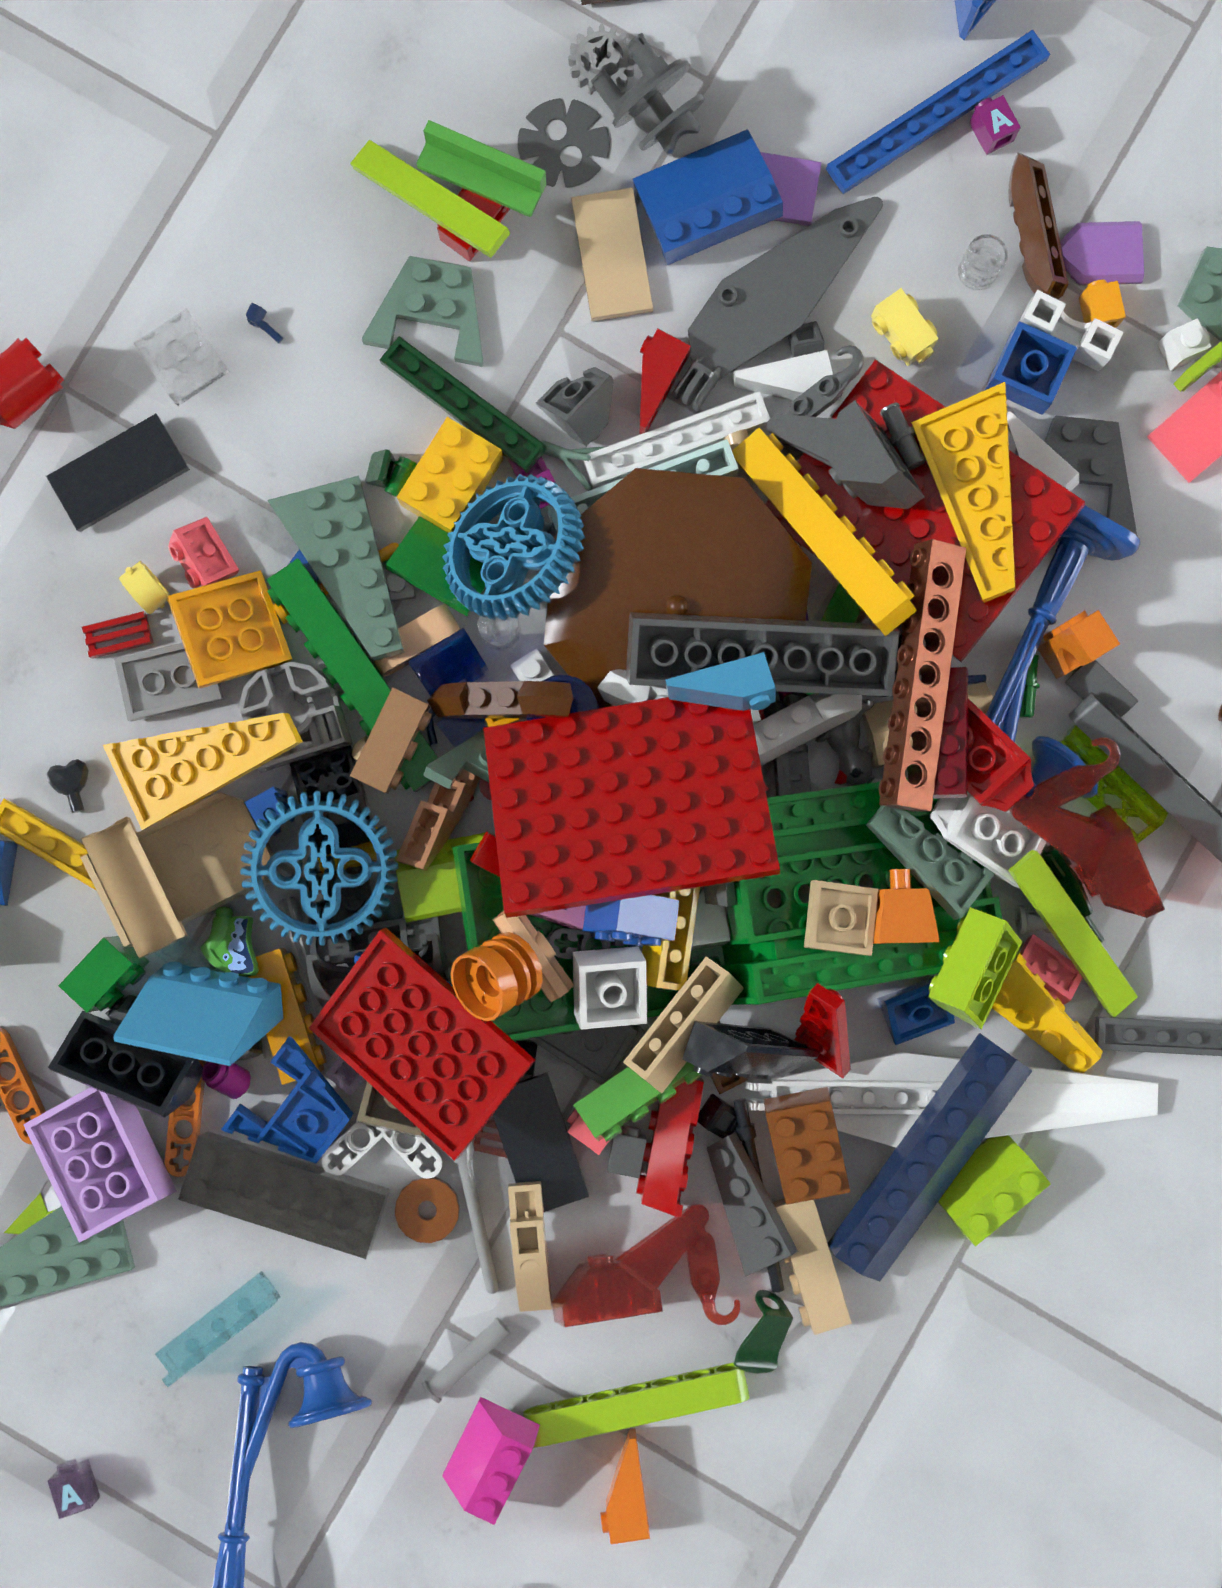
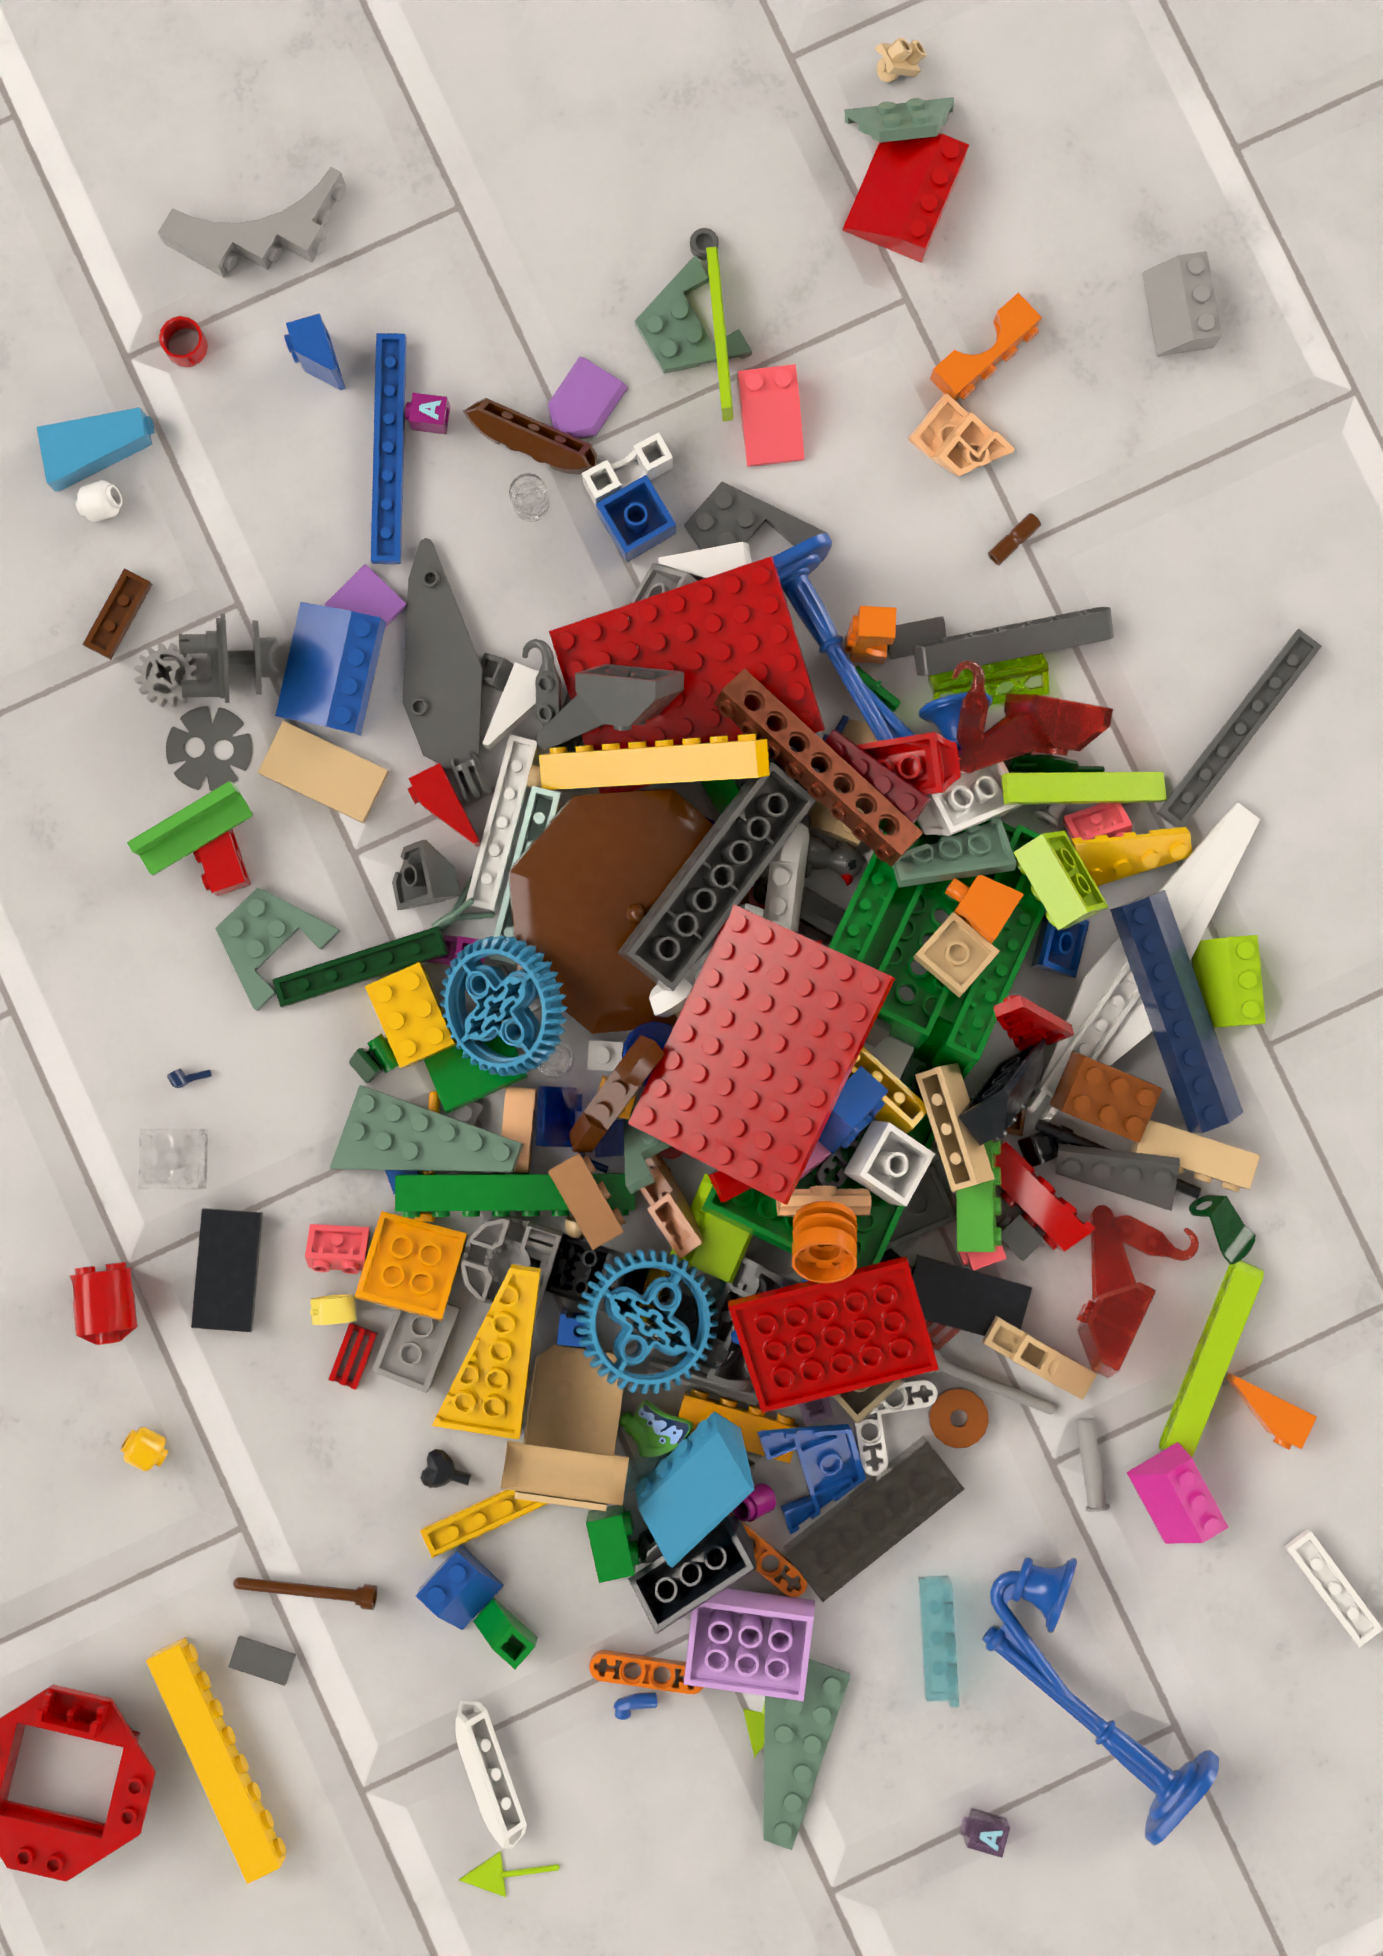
camera: 55 degrees left, 0 degrees up
(430, 198) = (184, 882): lime tile -> none
(731, 685) = (727, 916): dark azure slope -> none
(902, 436) = (624, 654): dark grey pin -> none
(905, 328) = (538, 591): light yellow brick -> none
(971, 469) = (686, 622): yellow wing -> none
(1102, 302) = (624, 430): light orange brick -> none
(1184, 344) = (698, 390): white brick -> none

